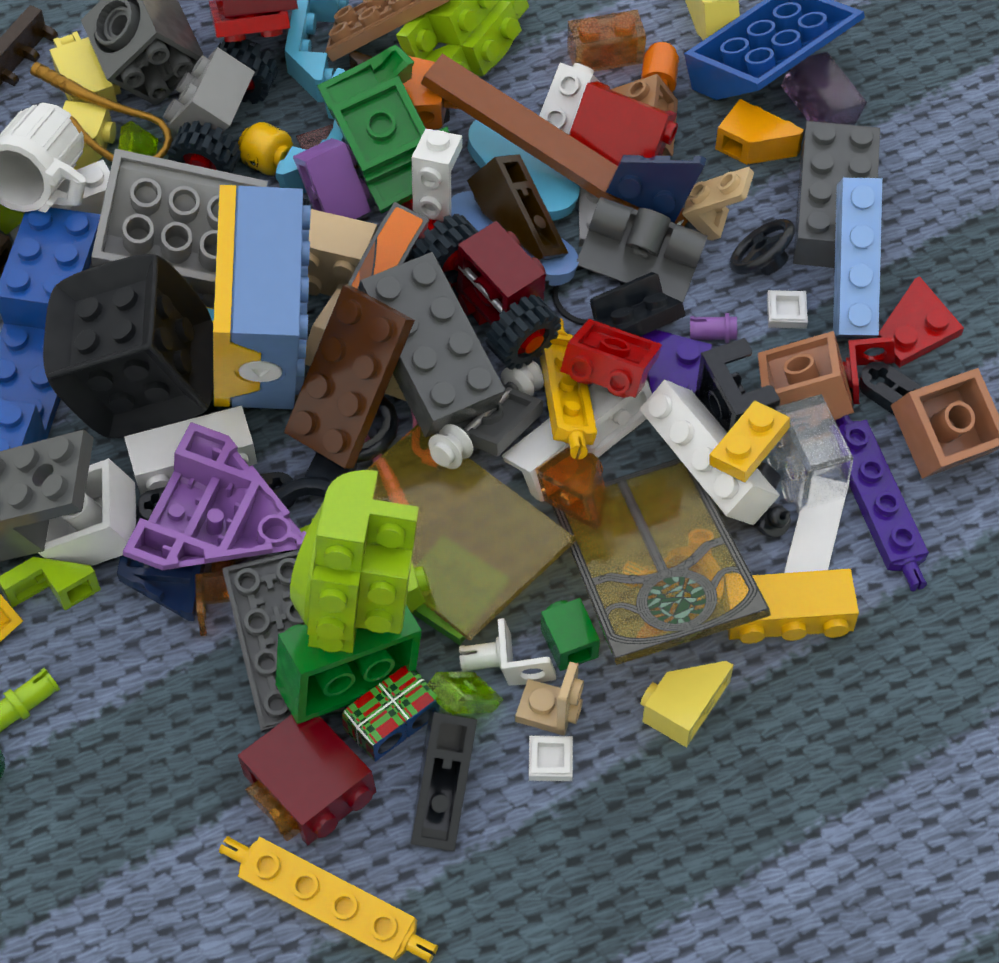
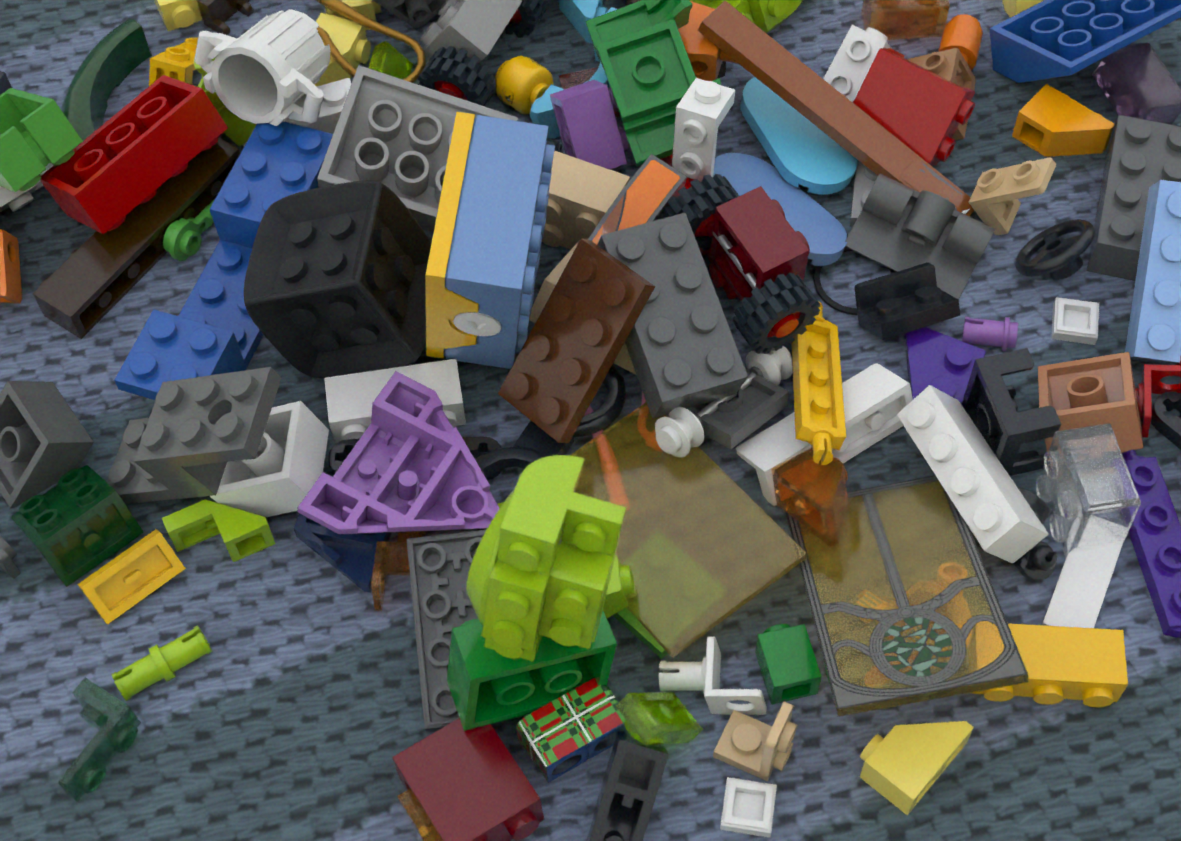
camera: 10 degrees right, 0 degrees up
(511, 198) = (781, 164): dark brown slope -> none
(610, 358) = (870, 354): red plate -> none
(656, 182) = (944, 164): dark blue wing -> none
(749, 441) = (1021, 468): yellow plate -> none

